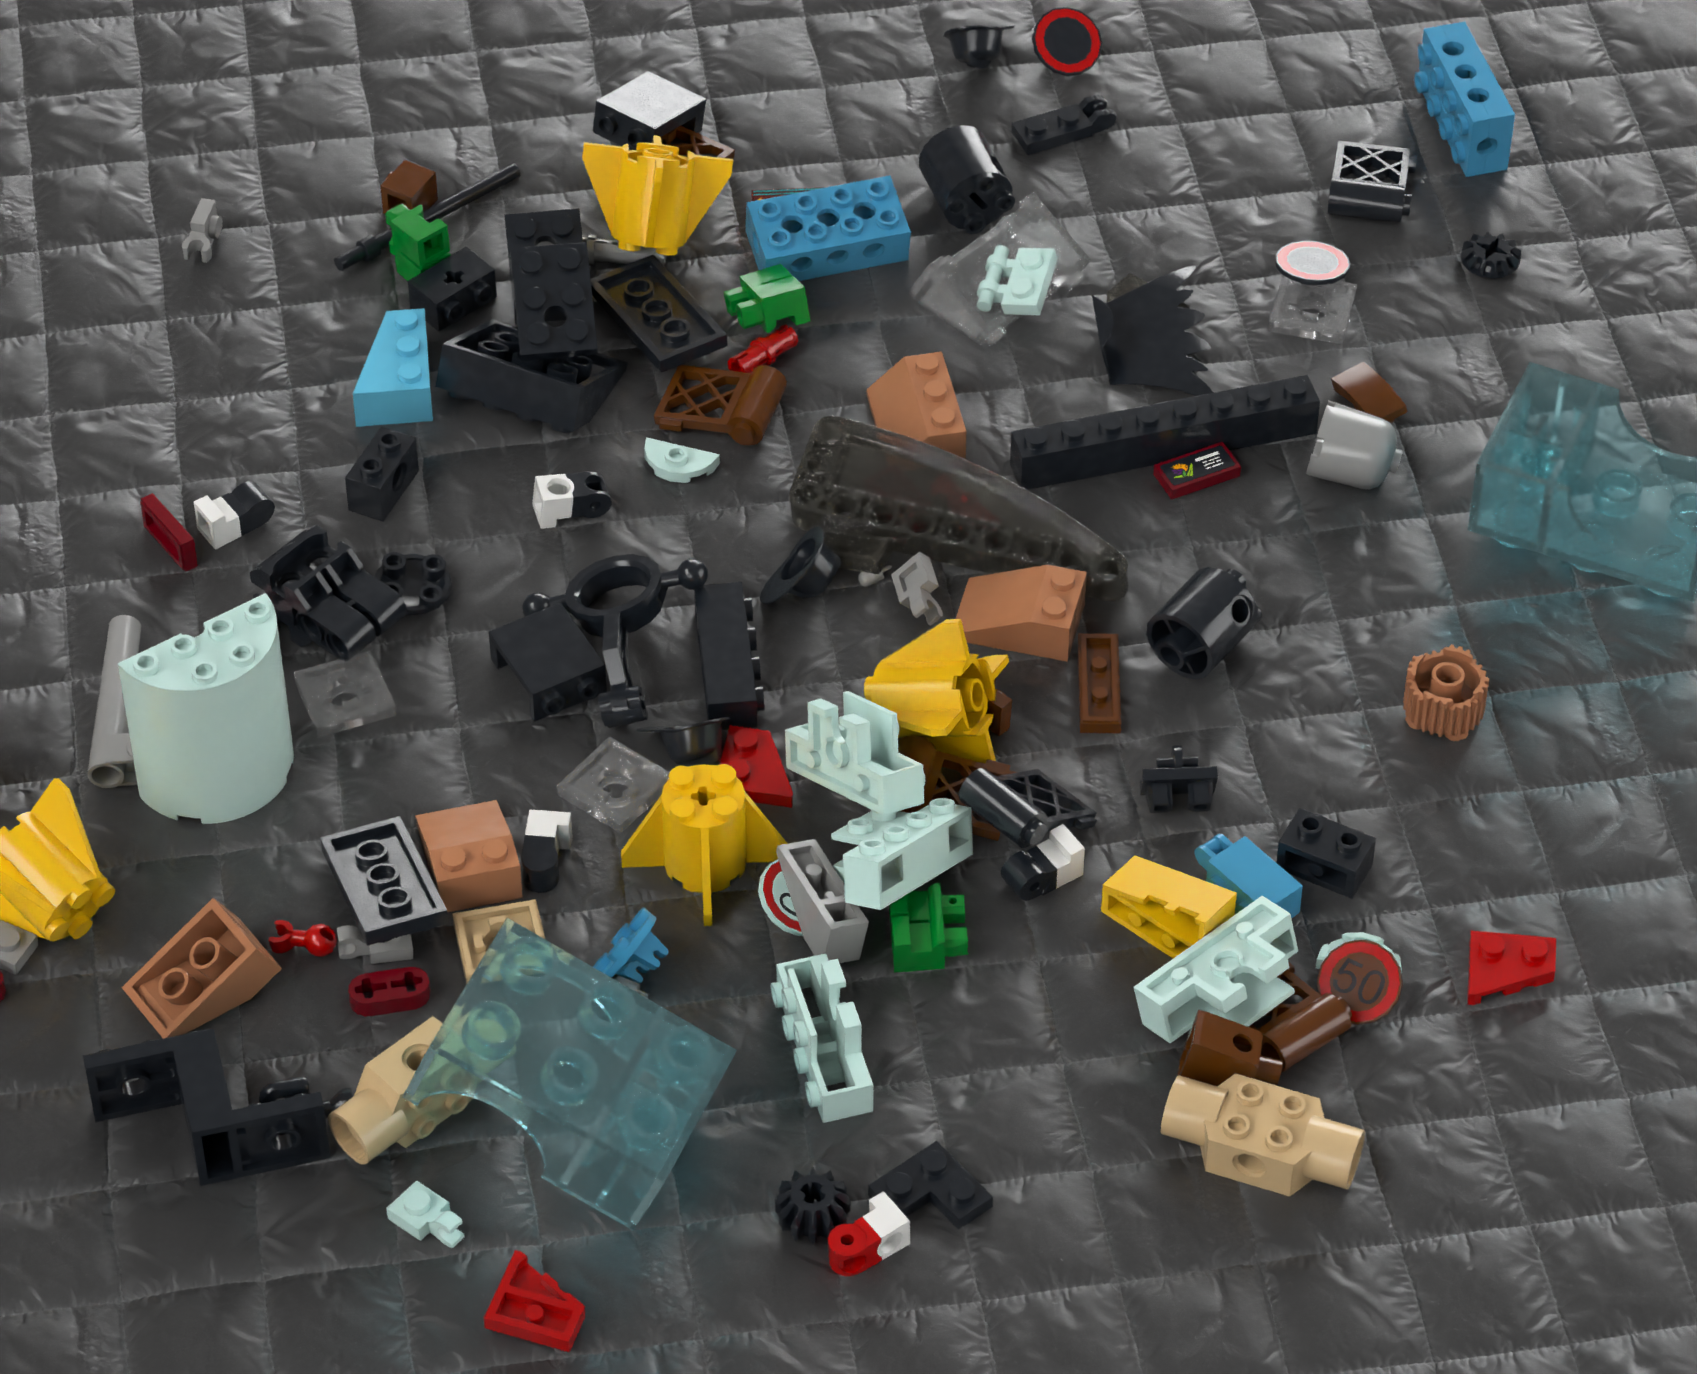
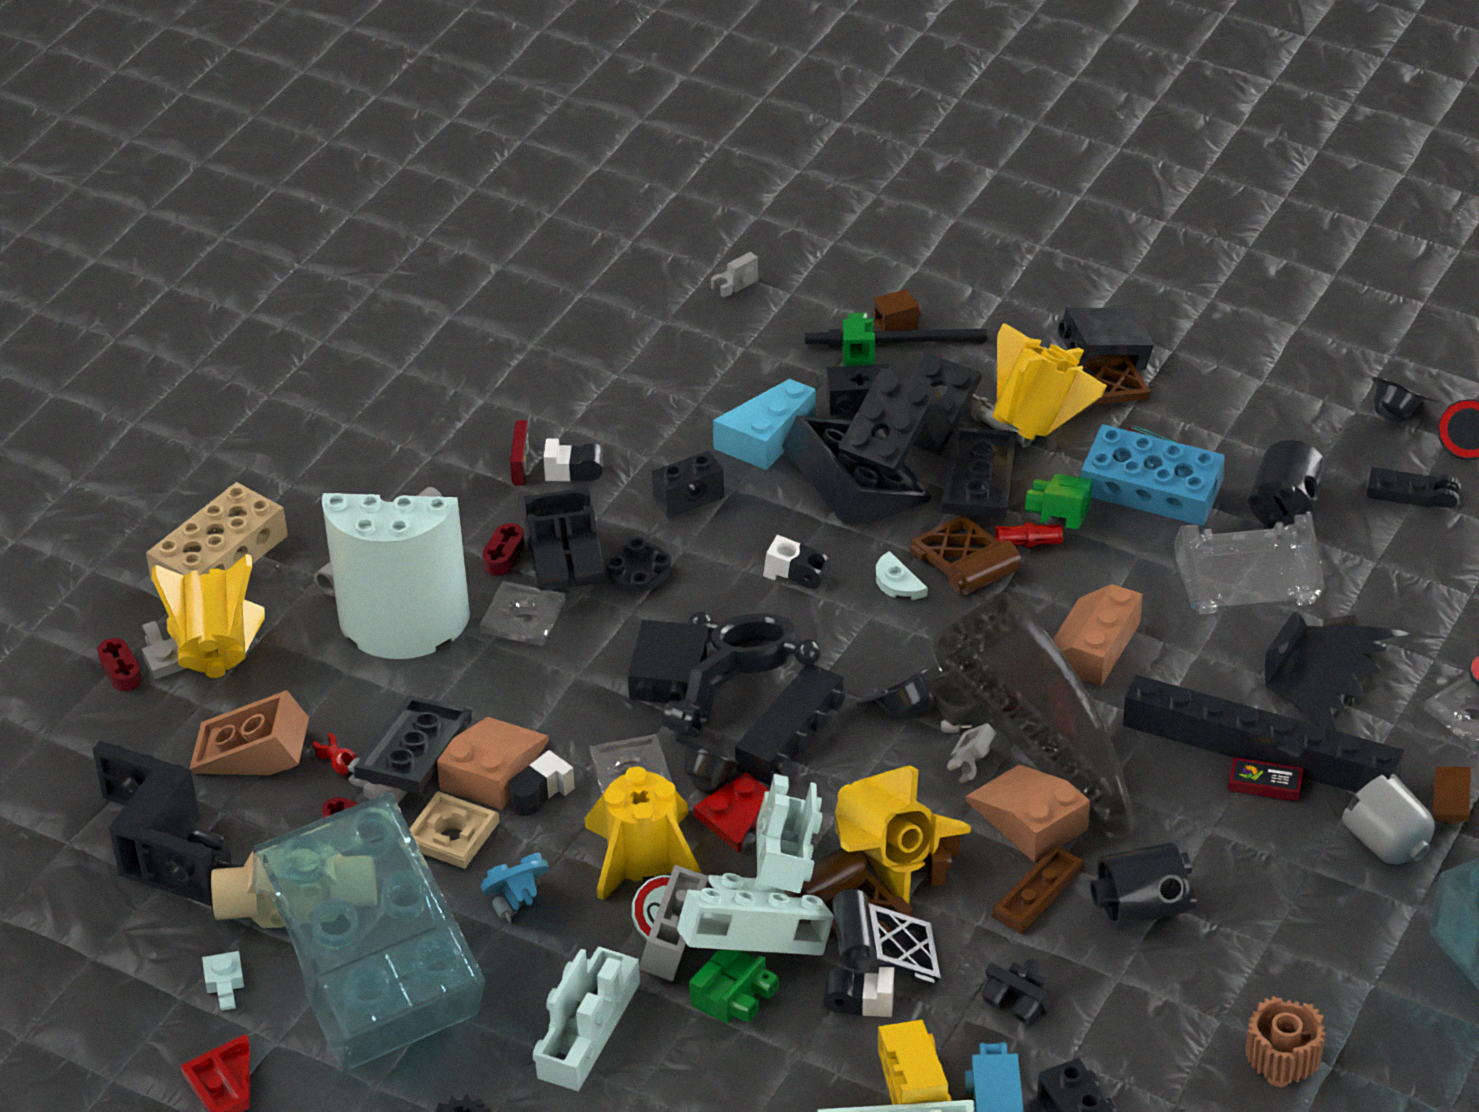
camera: 40 degrees right, 5 degrees down
(1027, 282) = (1264, 581): light aqua plate -> none

